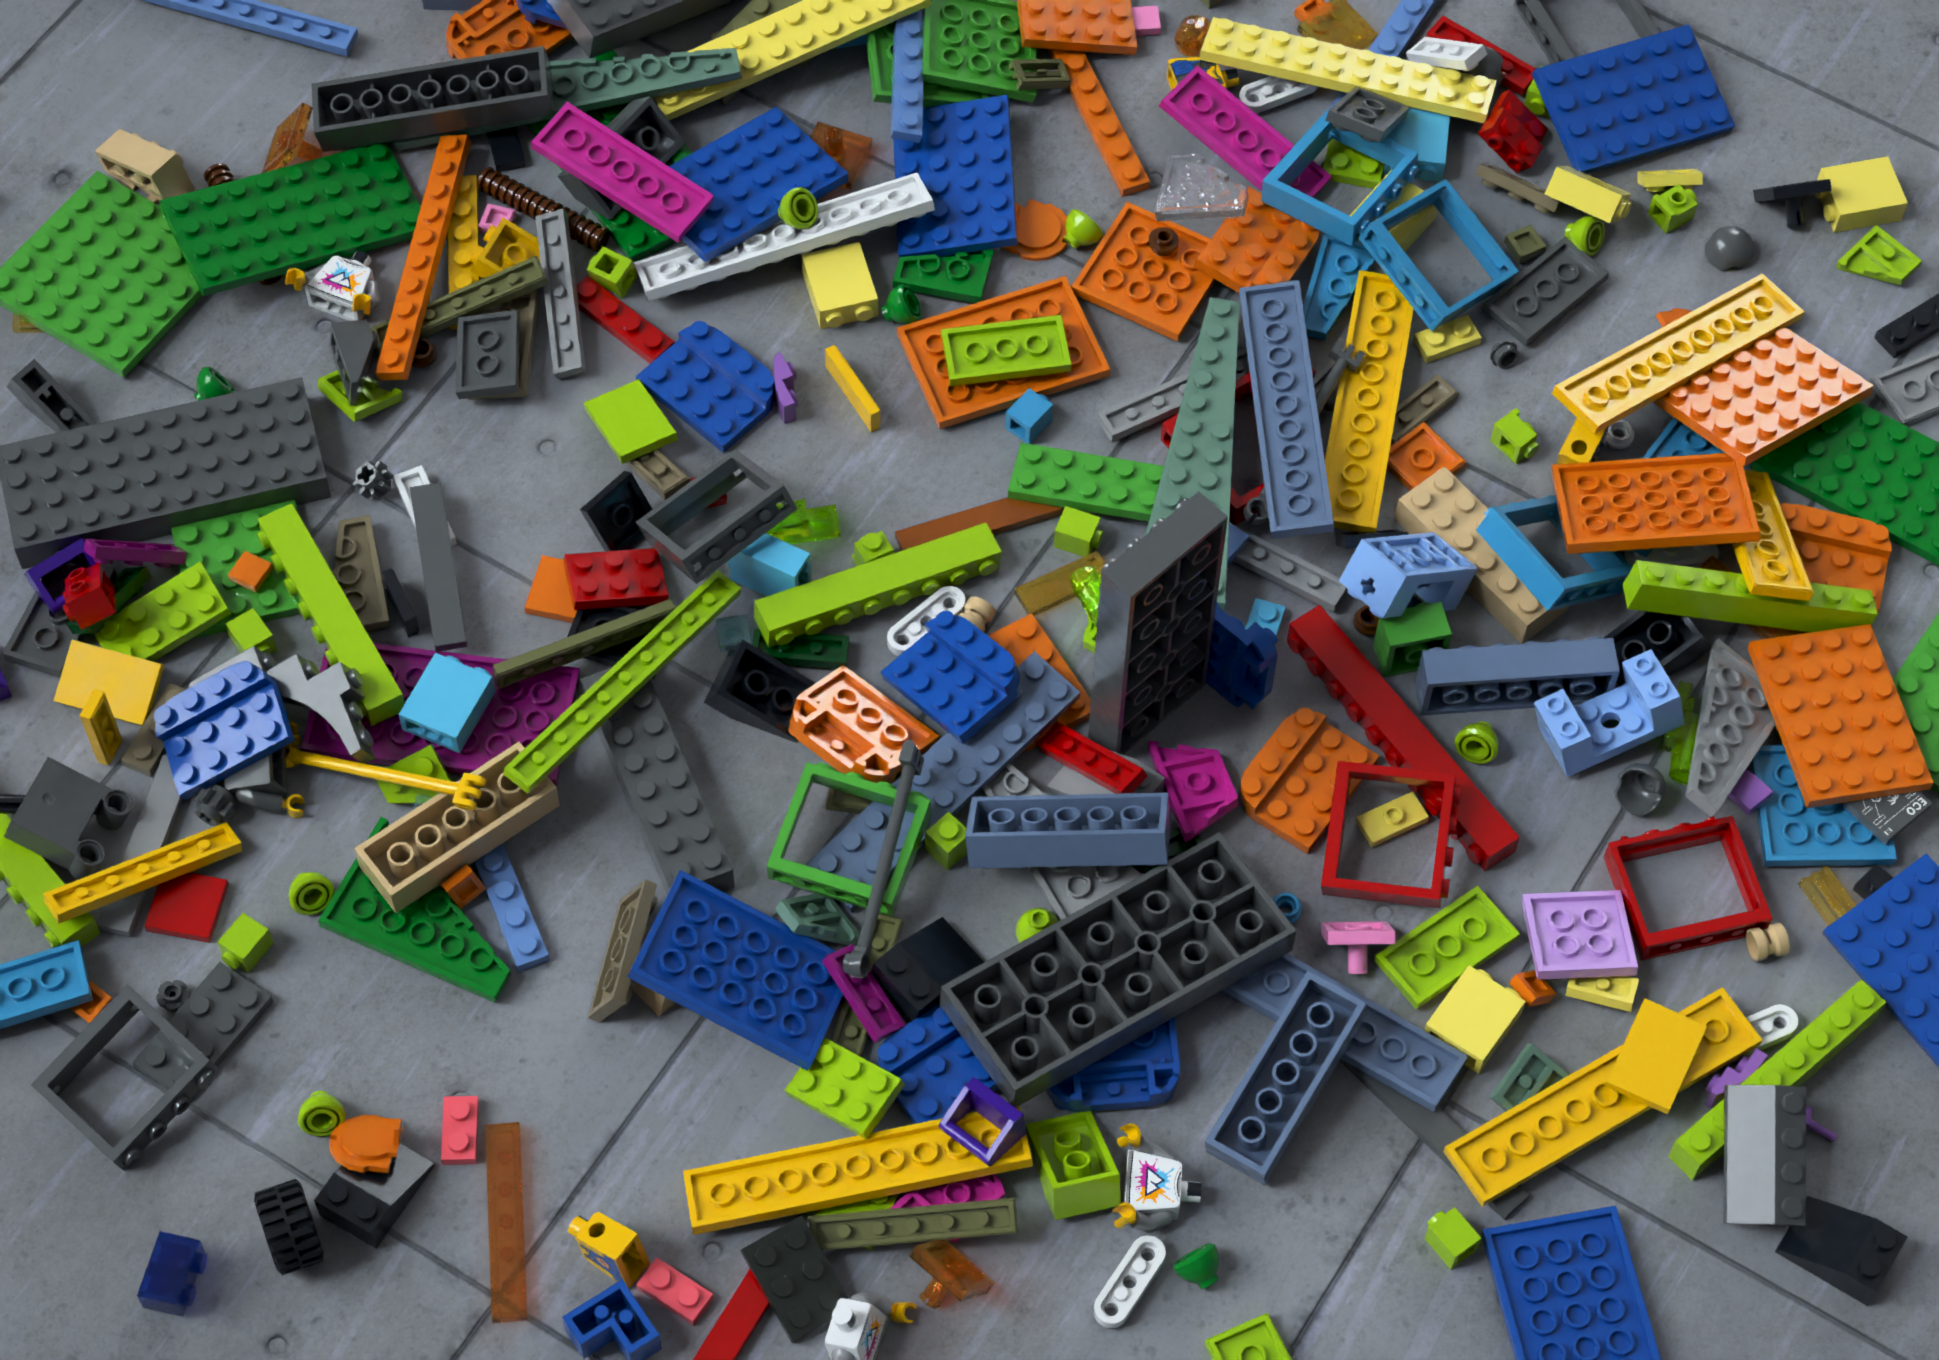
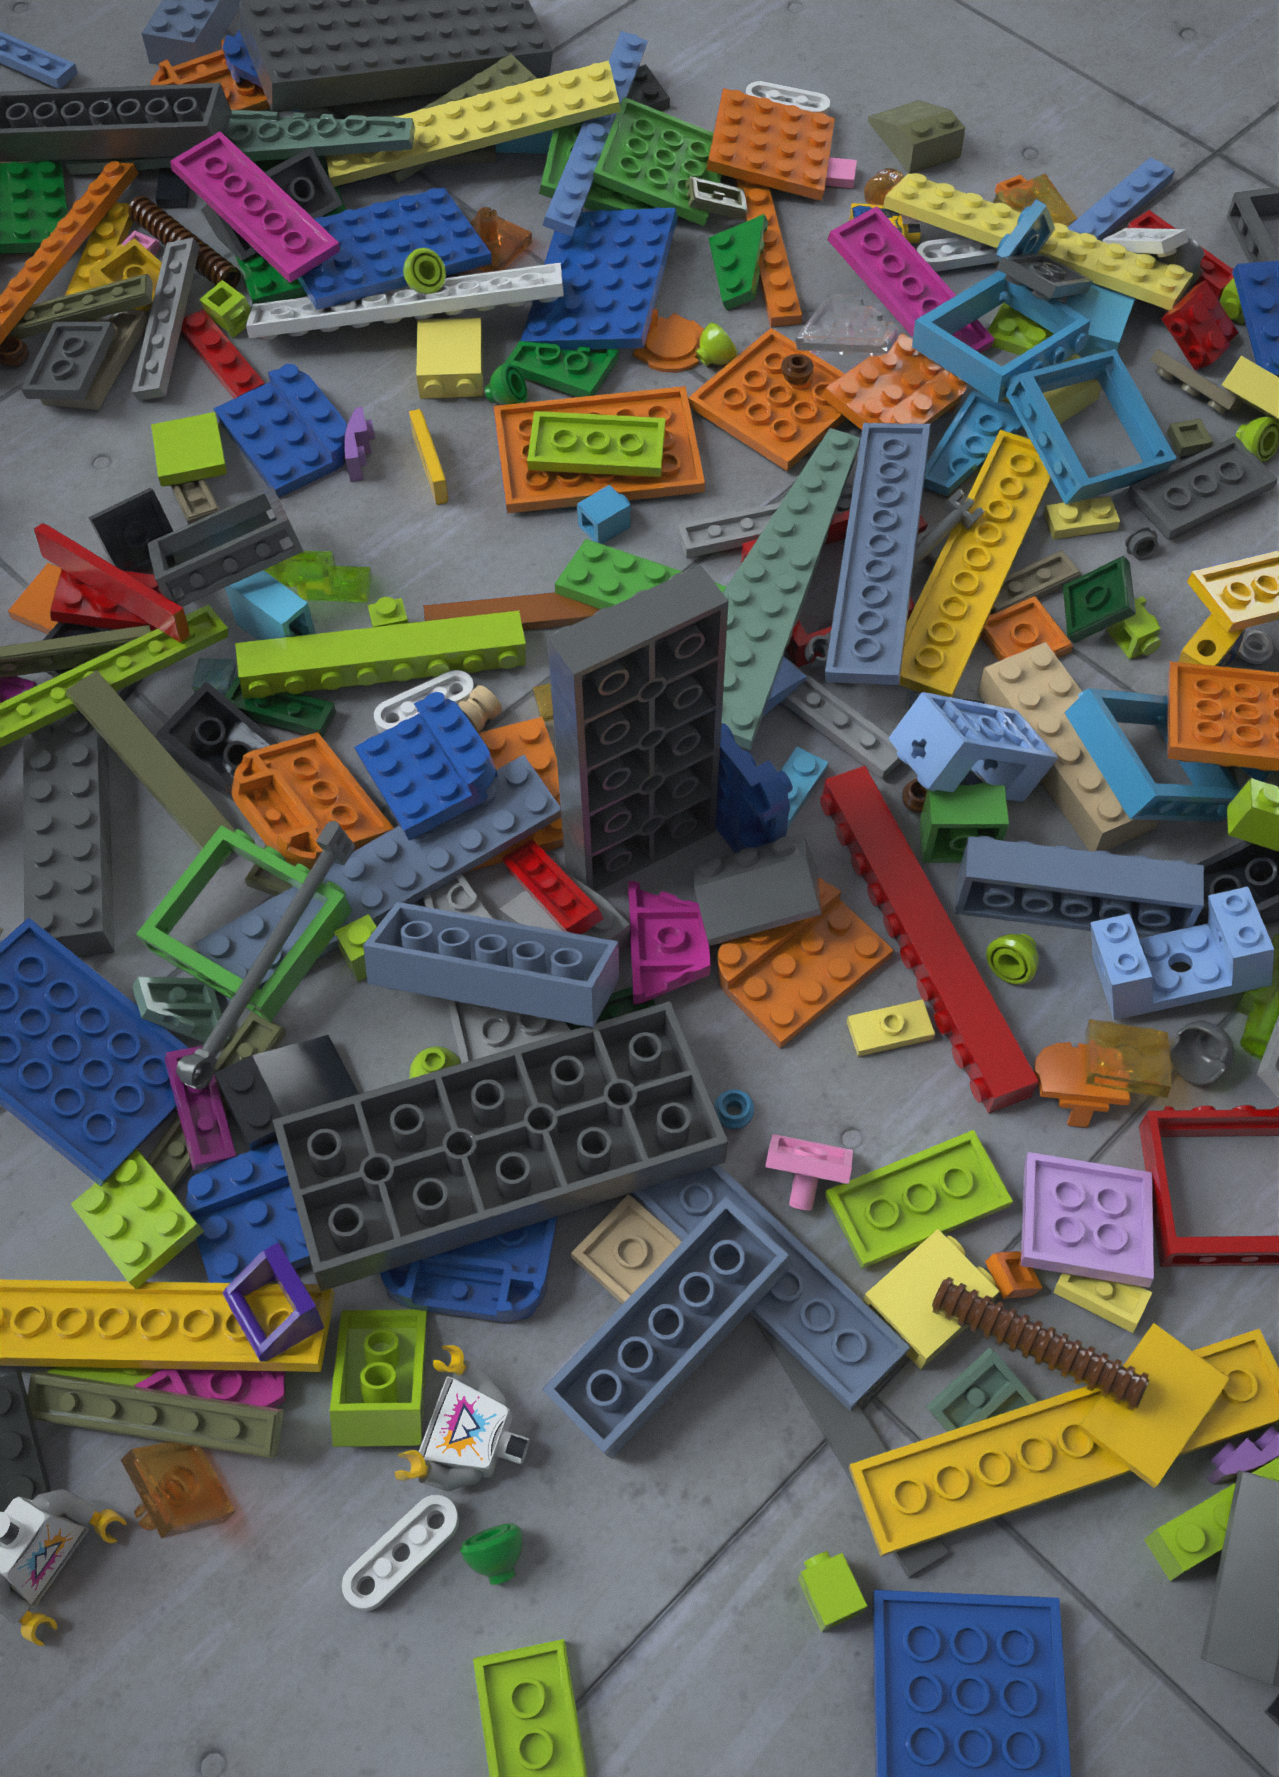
camera: 15 degrees right, 0 degrees up
(628, 566) = (112, 582): none -> red tile
(721, 722) = (147, 758): none -> olive tile
(1075, 135) = (737, 260): none -> green wing
(1233, 1032) = (625, 1248): none -> tan plate
(1261, 727) = (757, 889): none -> dark grey slope
(1348, 71) = (1030, 234): none -> dark azure plate
(1408, 895) = (817, 1025): red window -> none
(1479, 417) = (1099, 599): none -> dark green tile
(1551, 829) = (1063, 1076): none -> orange piece
(1564, 1029) = (1040, 1343): none -> reddish brown piece
(1584, 805) = (1127, 1058): none -> clear yellow plate

